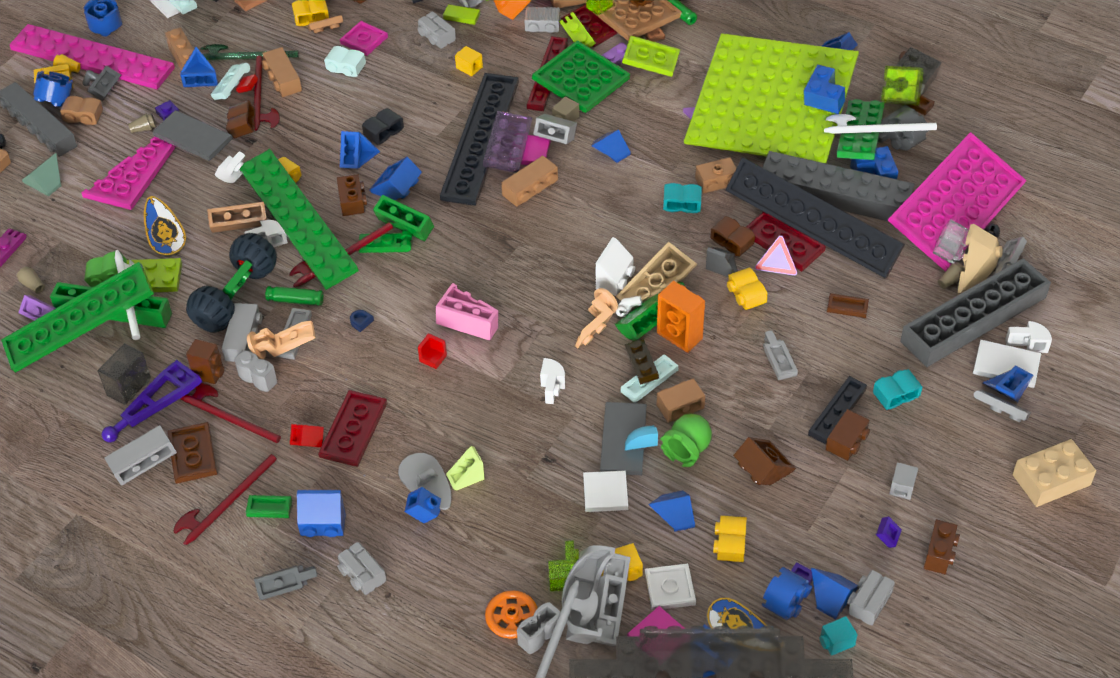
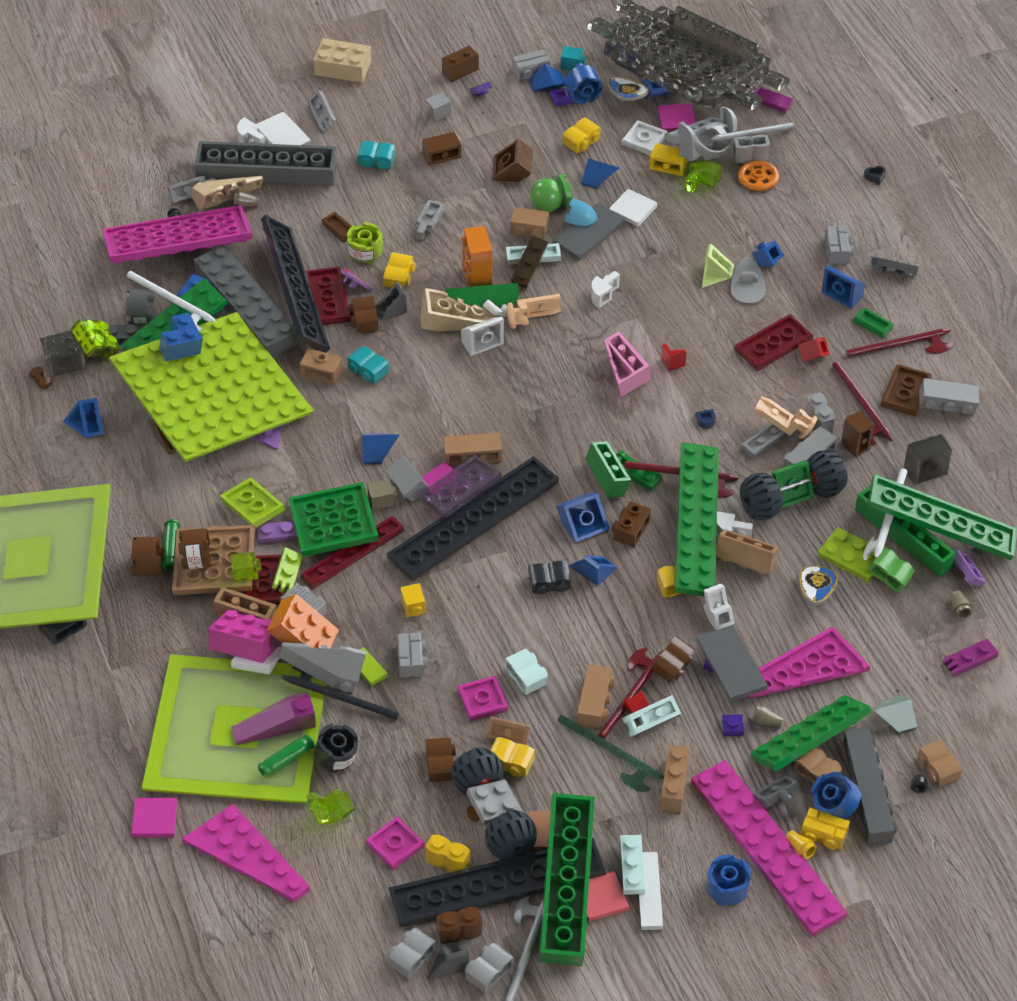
camera: 145 degrees left, 0 degrees up
(99, 126) = (810, 733): none -> green plate
(178, 375) = (882, 444): dark purple plate -> none
(198, 71) = (673, 736): blue slope -> none
(294, 295) = (741, 460): green axle -> none
(801, 291) = (365, 243): none -> lime brick
(844, 399) = (429, 166): black plate -> none
(951, 242) = (224, 205): clear brick -> none
(1011, 383) = (304, 114): blue slope -> none

